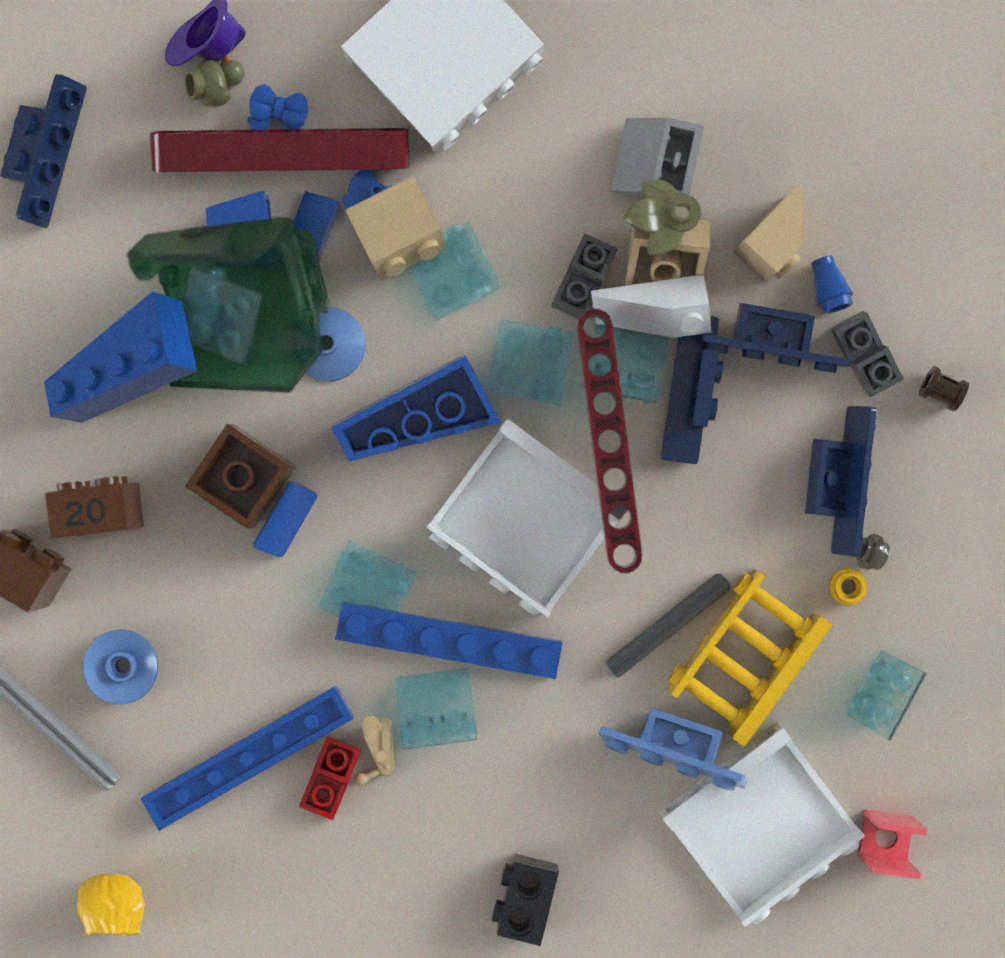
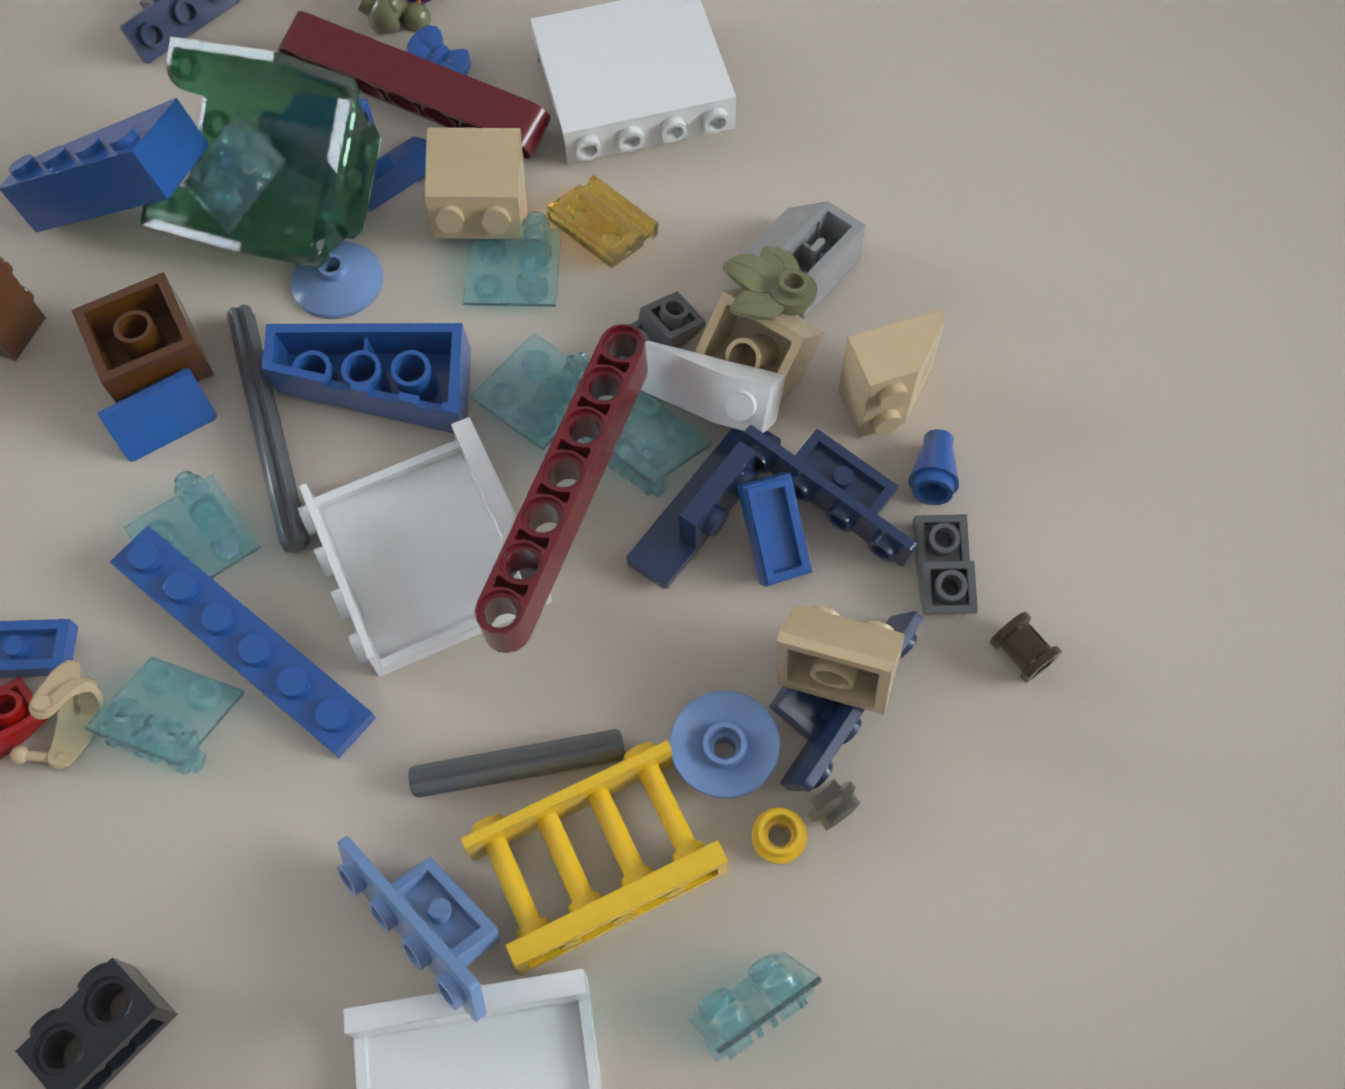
camera: 25 degrees right, 25 degrees down
(359, 484) = (267, 430): none -> dark grey axle
(496, 199) = (602, 221): none -> clear yellow plate
(751, 392) = (774, 529): none -> blue tile
(808, 556) = (729, 719): none -> medium blue dish
(845, 471) = (838, 657): none -> tan slope

